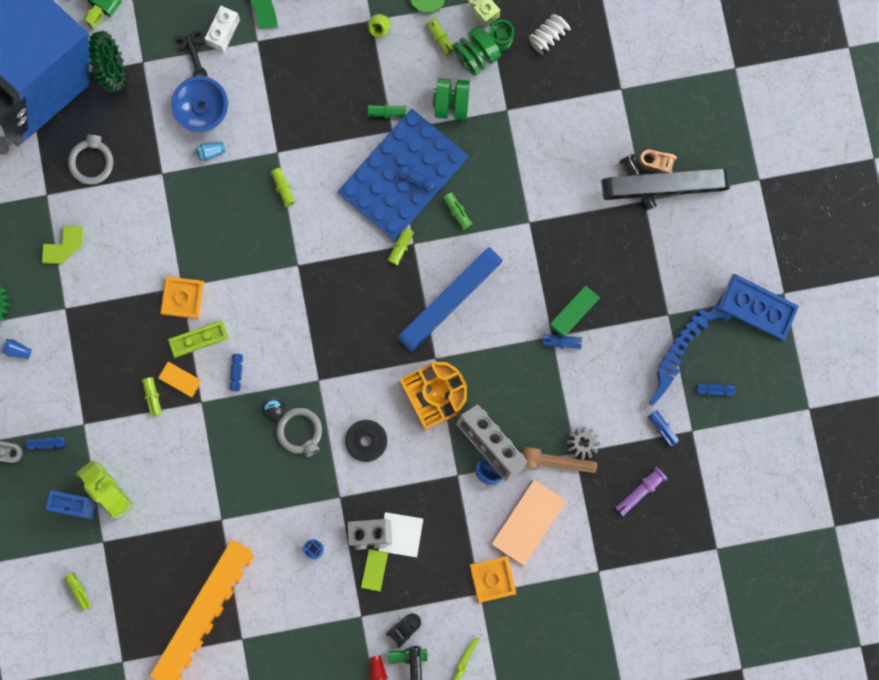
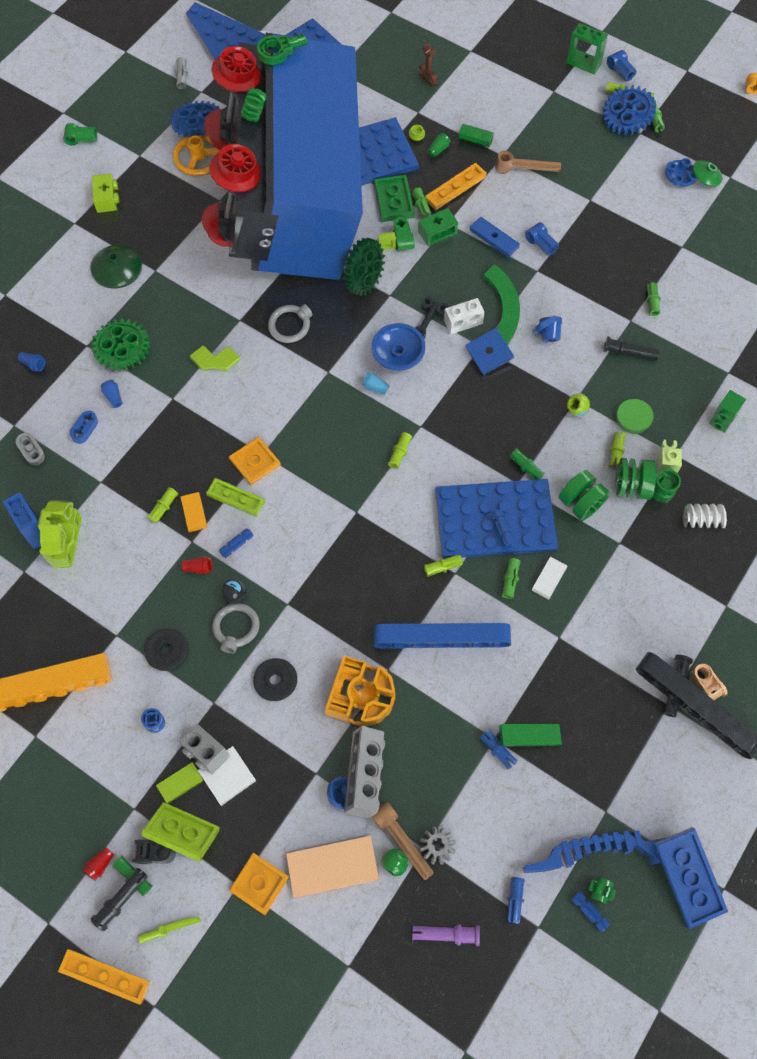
camera: 45 degrees right, 15 degrees down
(28, 394) = (84, 427): none -> blue beam
(45, 443) = (62, 470): blue axle -> none
(226, 415) = (198, 565): none -> red cone
(270, 41) = (489, 351): none -> blue tile
(277, 503) = (166, 661): none -> black wheel
(410, 598) = (180, 831): none -> lime tile
(483, 184) = (549, 578): none -> white tile
(566, 480) = (395, 862): none -> green piece
(711, 369) = (601, 890): none -> green gear

